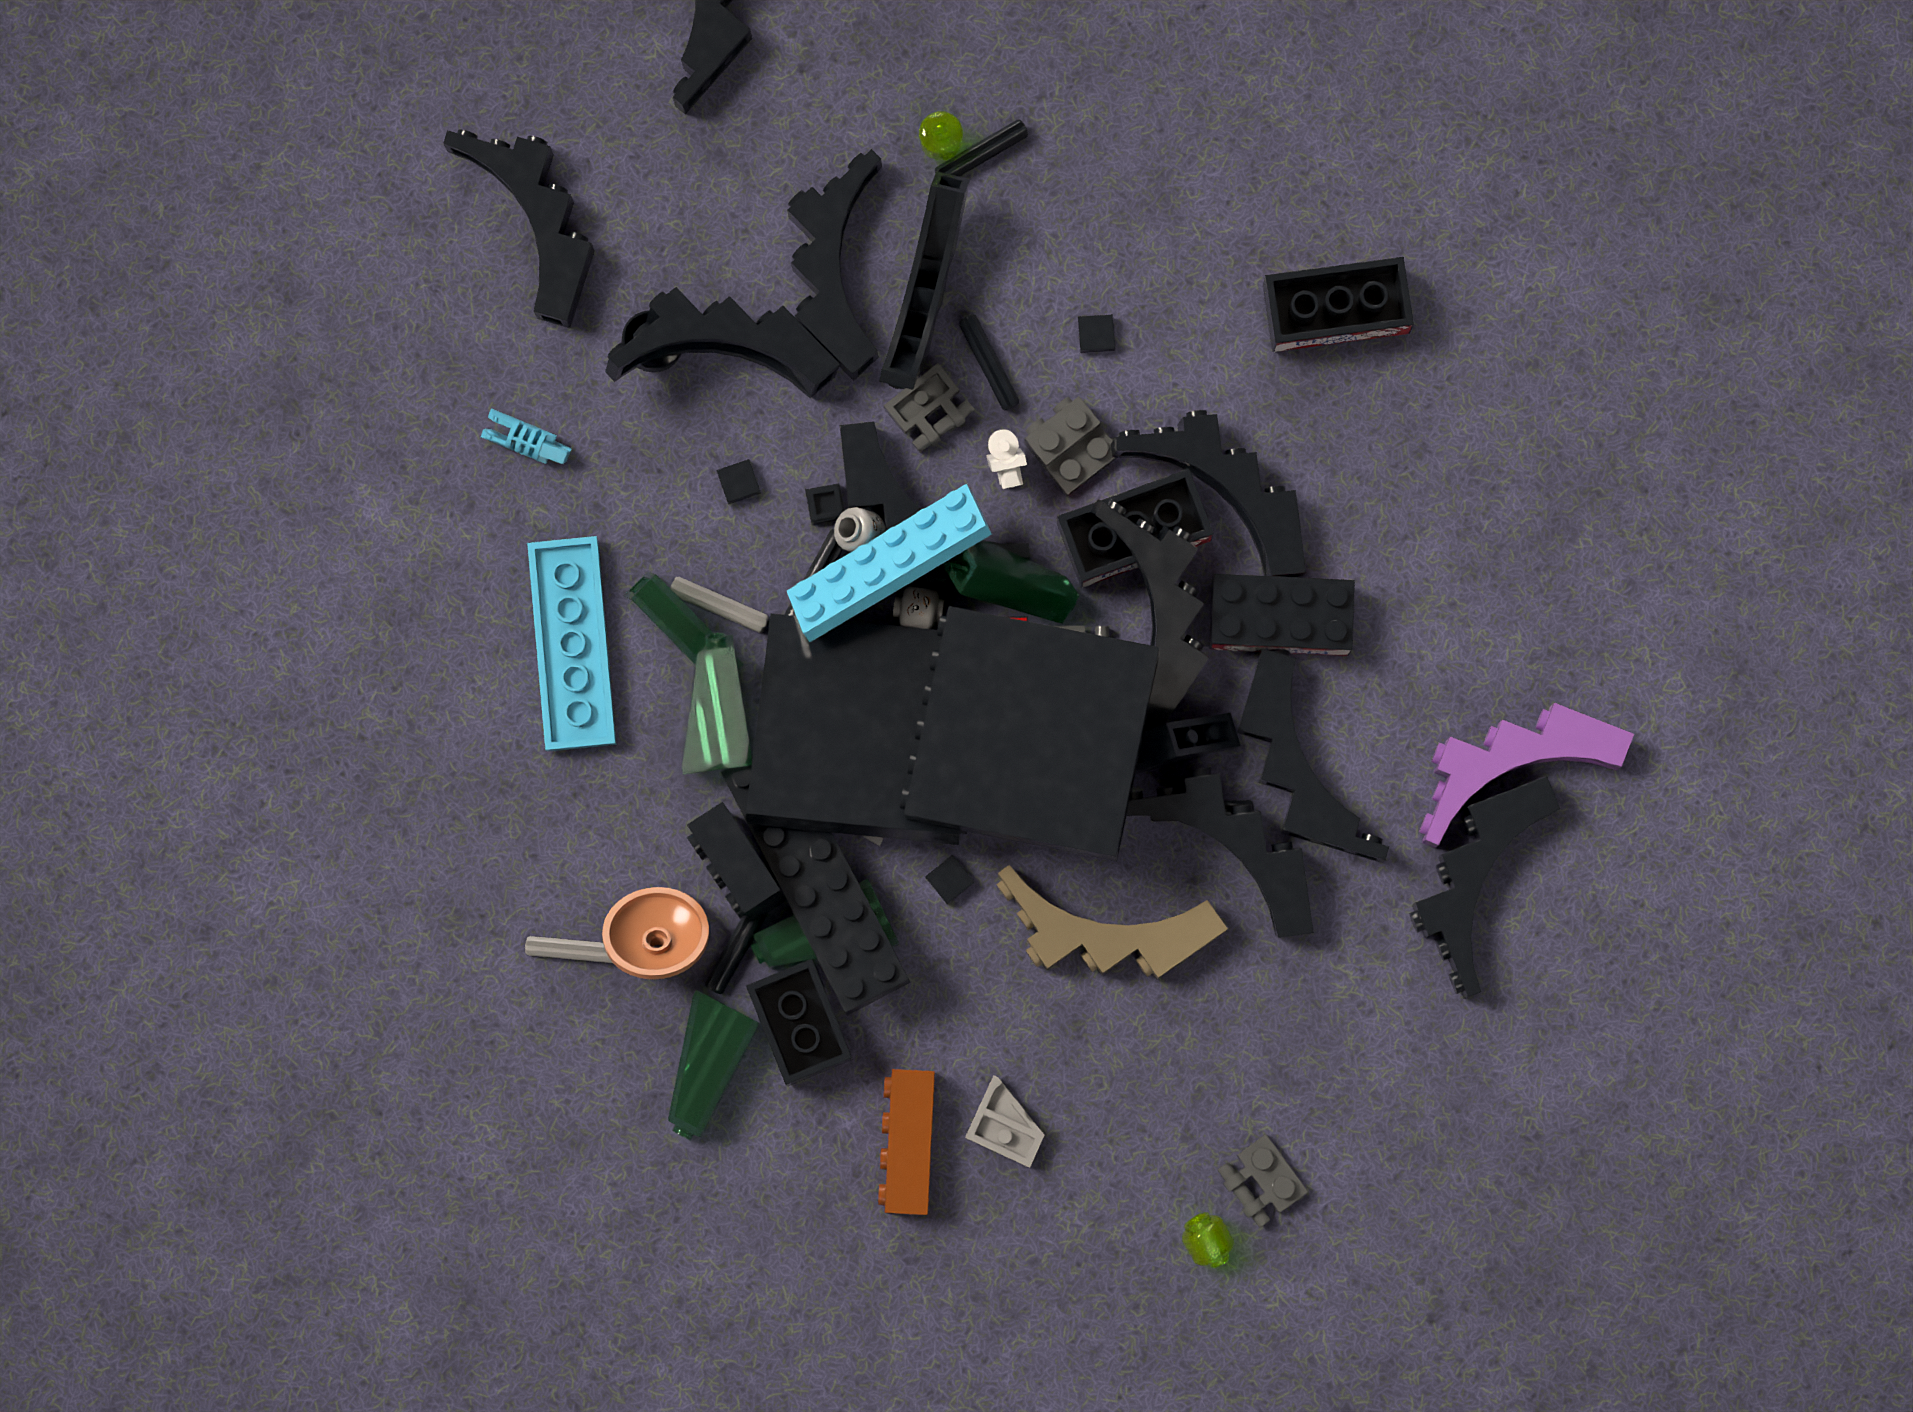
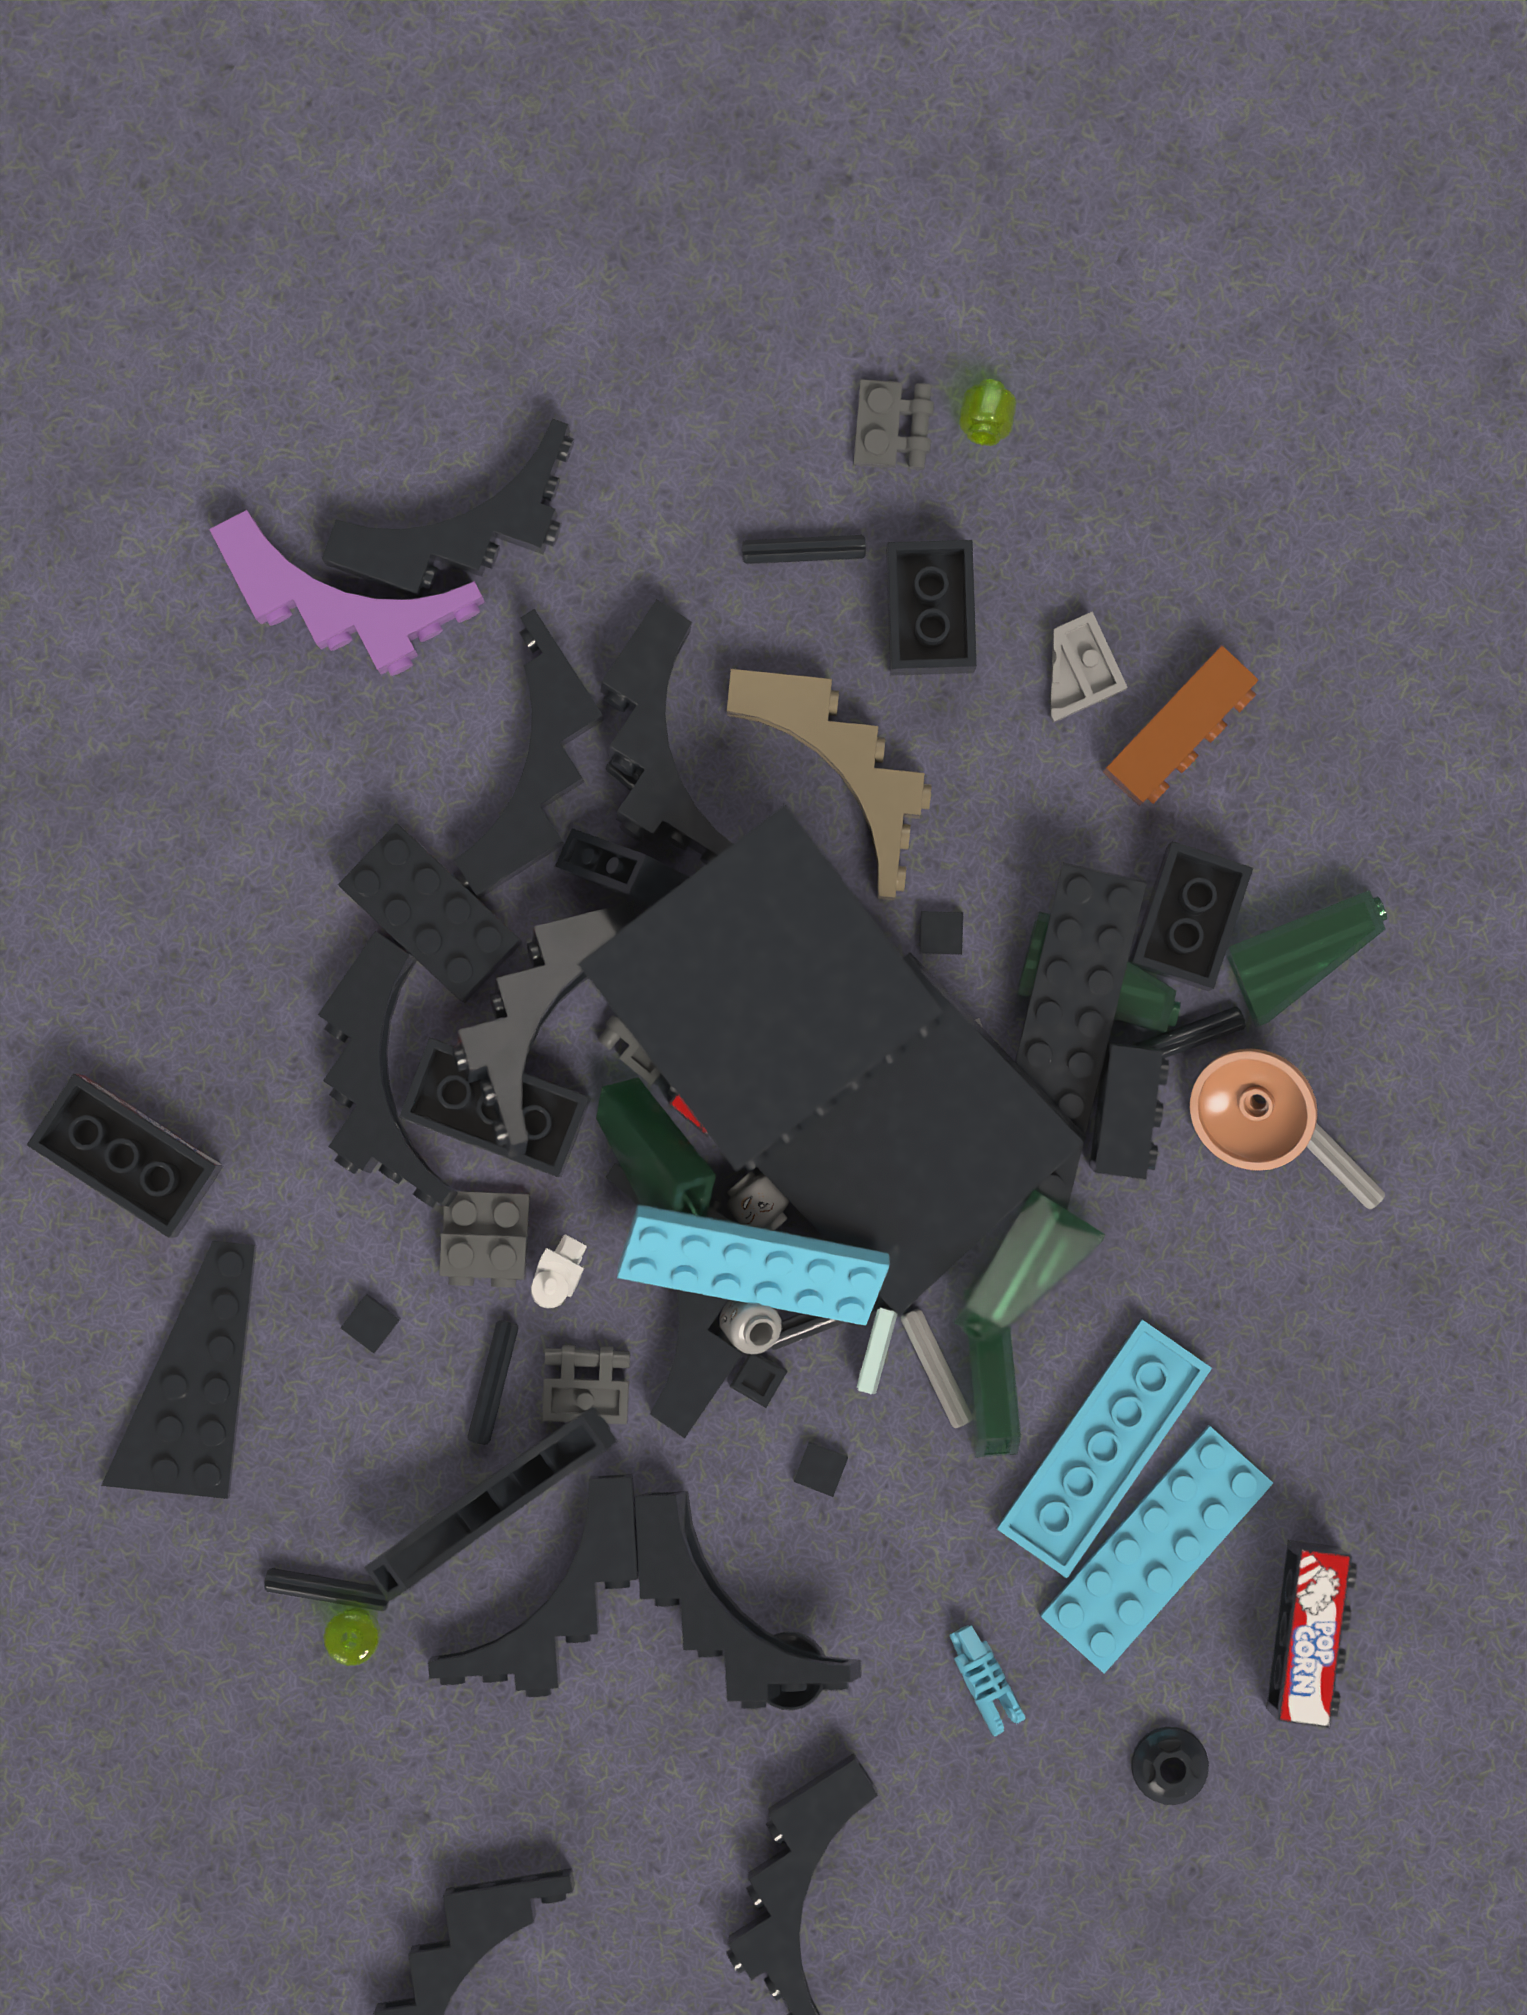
camera: 140 degrees left, 5 degrees up
(345, 633) = (1310, 1633): none -> brick
(374, 499) = (1157, 1747): none -> black piece
(485, 610) = (1156, 1549): none -> medium azure plate
(765, 581) = (876, 1350): none -> light aqua tile
(1134, 1079) = (931, 607): none -> black brick
(1163, 190) = (190, 1408): none -> black wing
(1249, 1050) = (804, 549): none -> black axle

